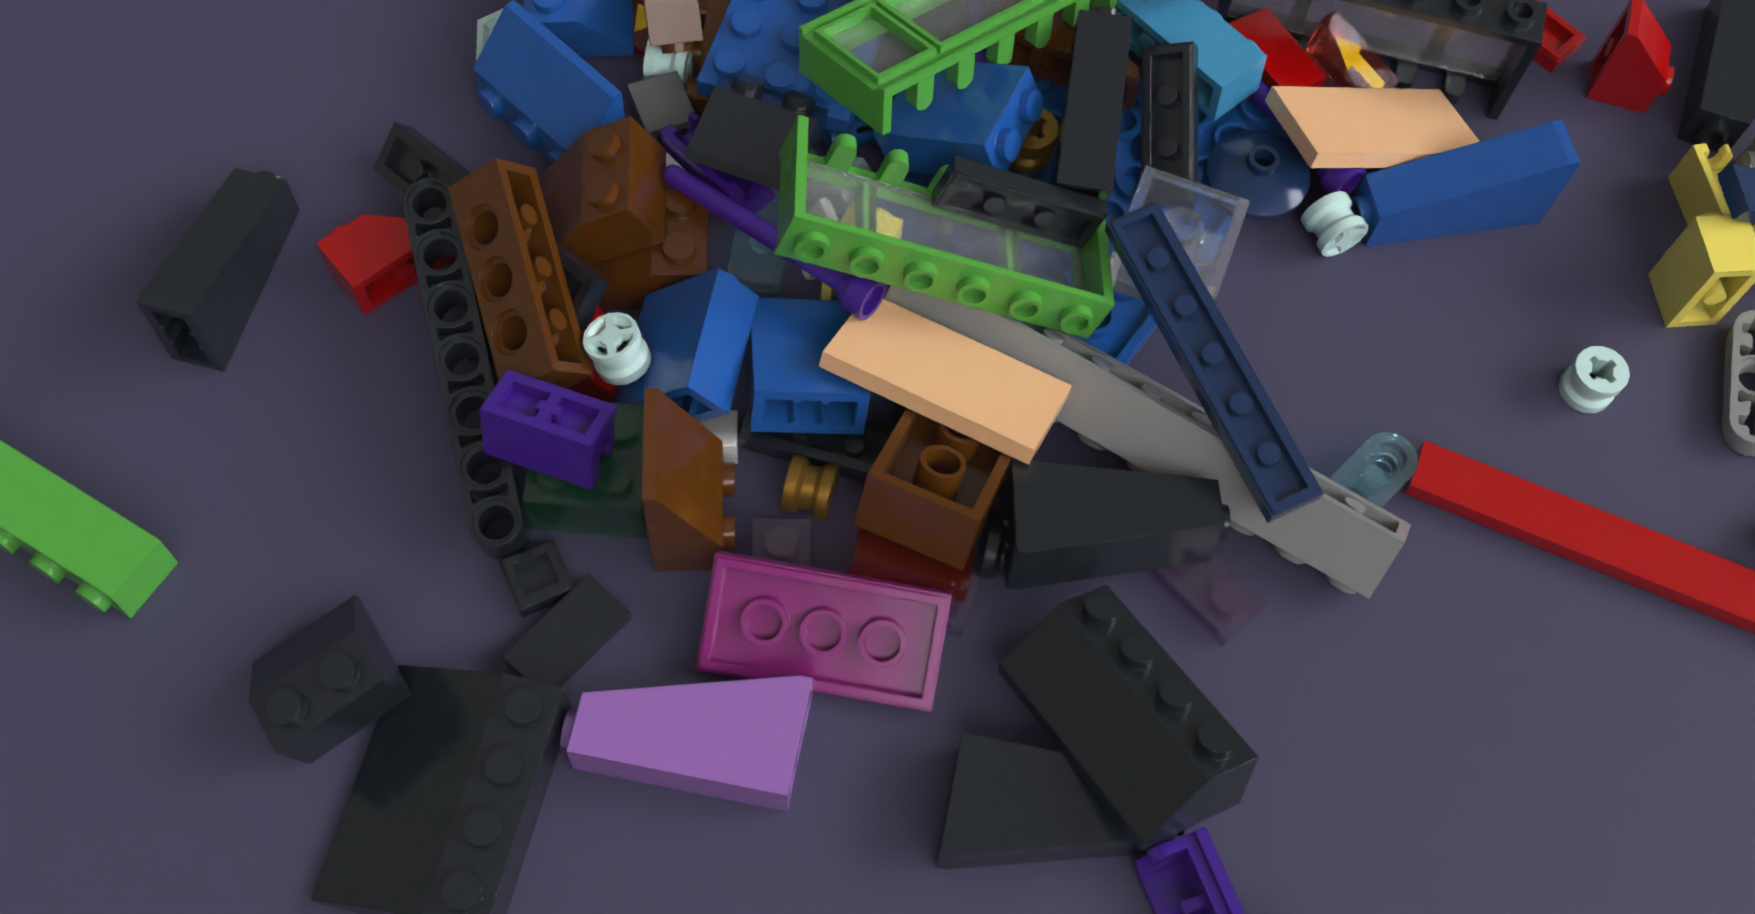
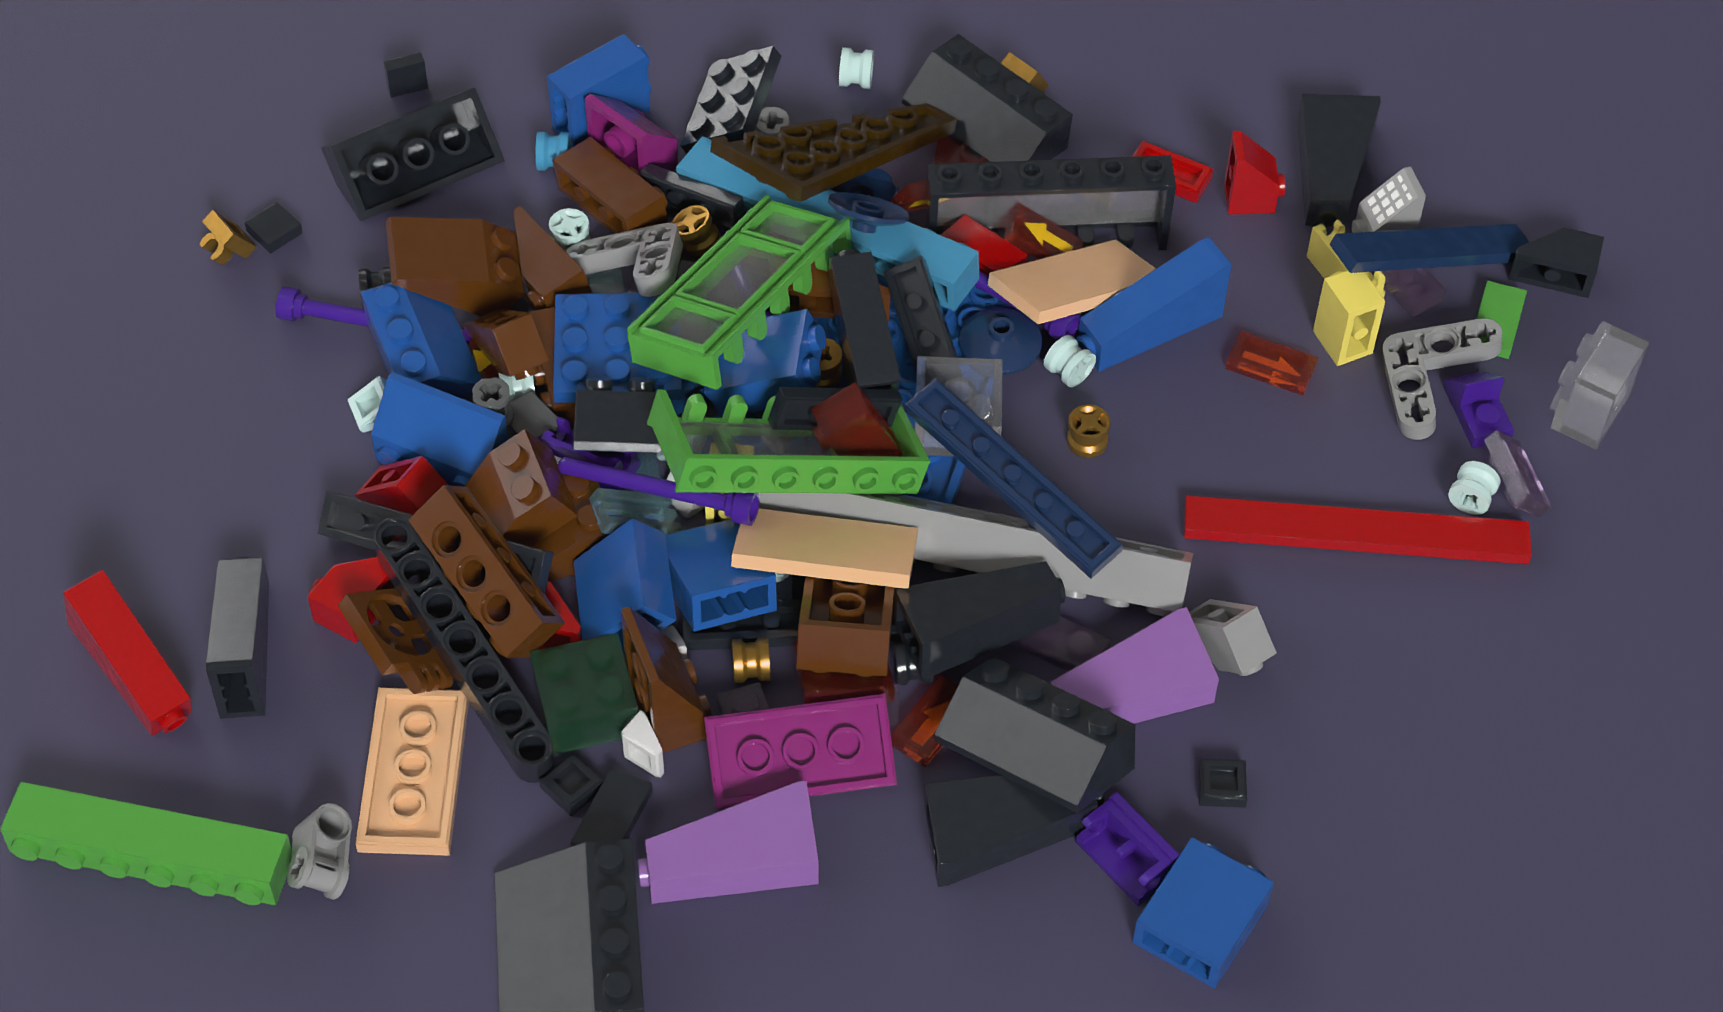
camera: 15 degrees left, 10 degrees down
(84, 248) = (126, 654): none -> red slope
(190, 584) = (321, 851): none -> light grey piece
(325, 683) = (452, 893): black slope -> none
(356, 499) = (412, 772): none -> light nougat tile
(402, 370) = (391, 652): none -> reddish brown piece
(488, 136) = (402, 484): none -> red slope
(548, 428) = (552, 666): dark purple hinge -> none
(604, 340) = (575, 599): light aqua wheel -> none
(624, 71) = (494, 395): none -> dark grey bush
(634, 557) = (642, 745): none -> white slope
(736, 251) = (635, 506): none -> clear light blue tile
(990, 639) = (916, 731): none -> clear red tile
(1035, 234) = (854, 426): none -> clear red slope
(1295, 668) = (1148, 673): none -> medium lavender slope
(1328, 305) = (1083, 422): none -> pearl gold wheel
(1350, 847) = (1223, 783): none -> black tile
(1367, 479) = (1150, 531): clear light blue plate -> none
(1422, 647) = (1233, 636): none -> light grey slope
(1585, 300) = (1272, 363): none -> clear red tile
(1596, 393) = (1298, 427): light aqua wheel -> none

